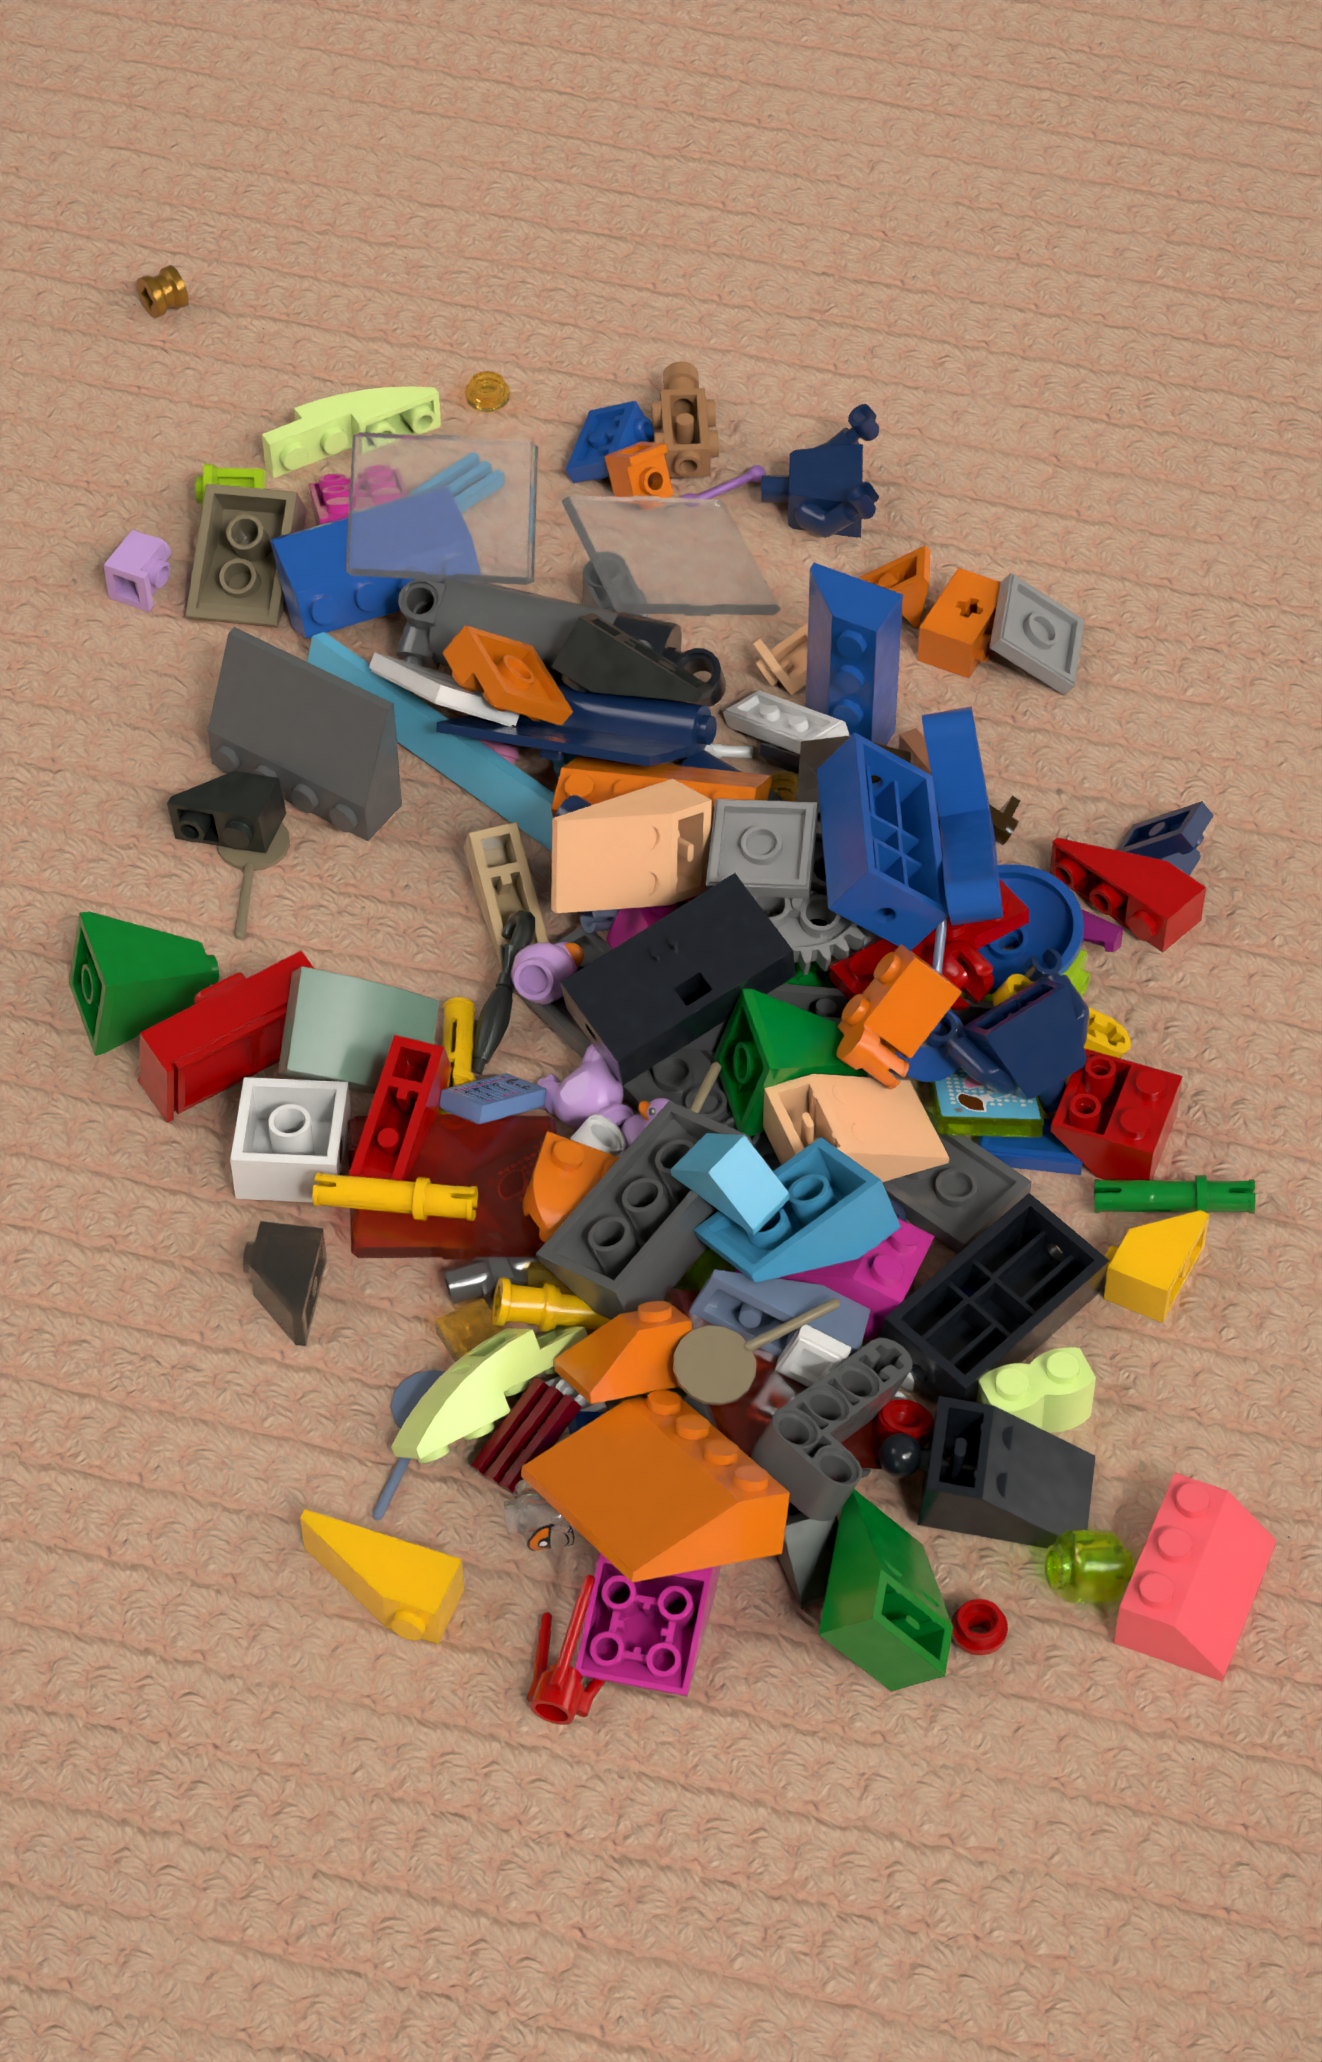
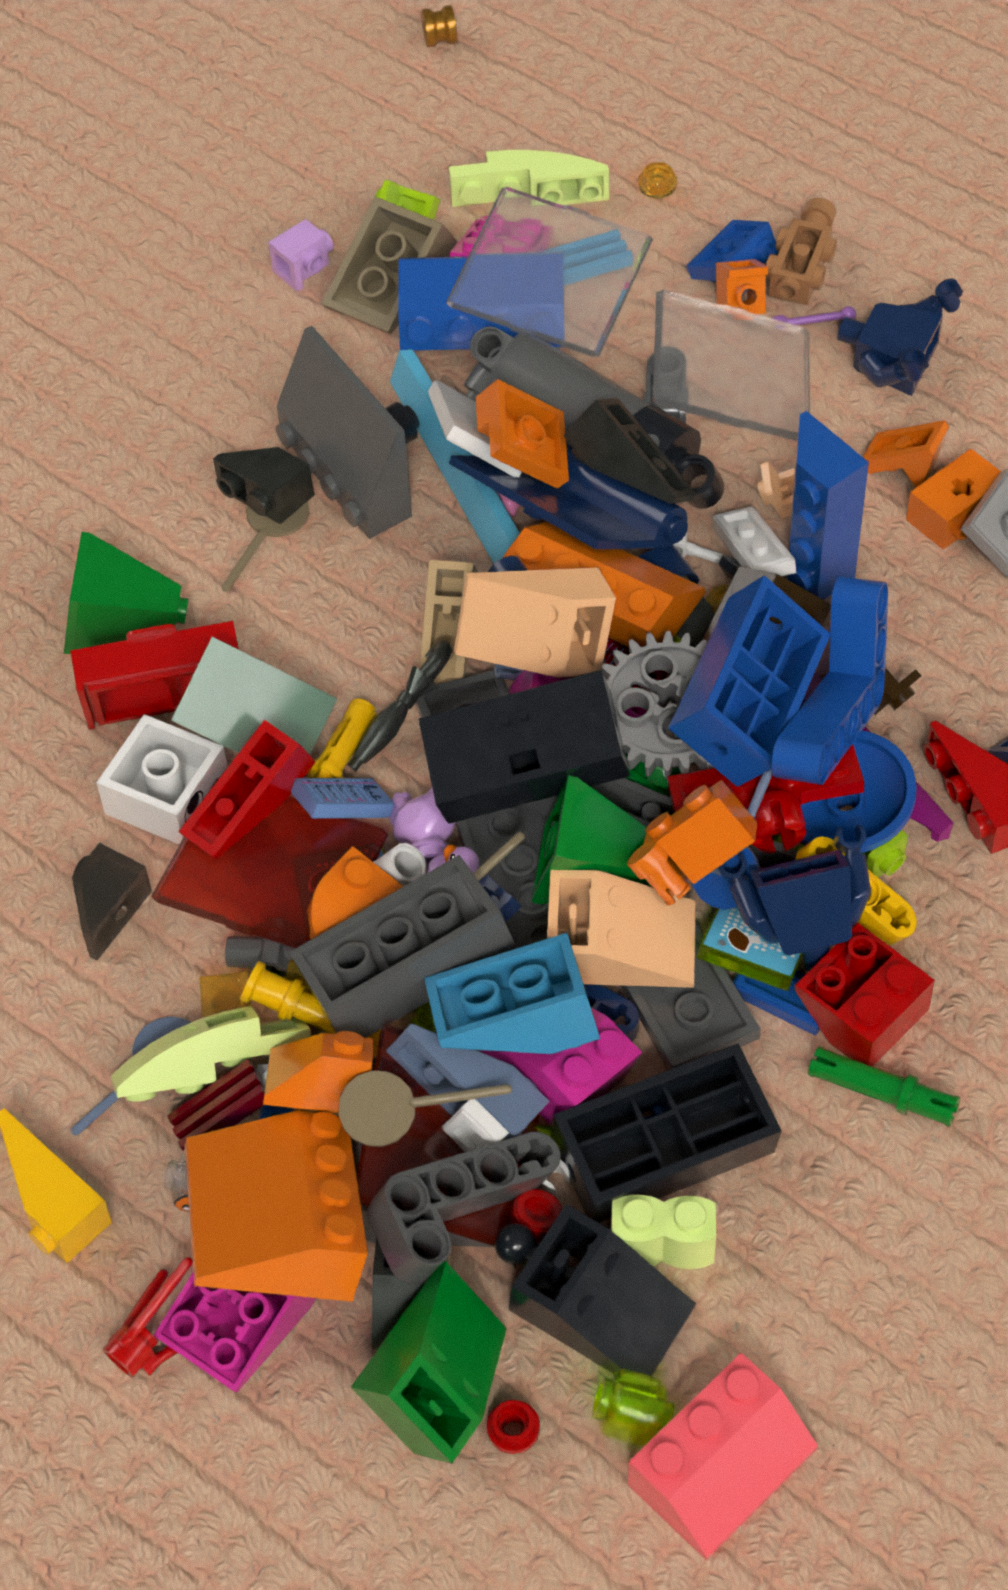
camera: 25 degrees right, 5 degrees up
(396, 1196) = (223, 868): yellow pin -> none
(542, 967) = (436, 695): lavender animal -> none
(732, 1179) = (464, 949): medium azure slope -> none
(765, 845) = (648, 653): light grey tile -> none
(1155, 1263) = (834, 1144): yellow slope -> none

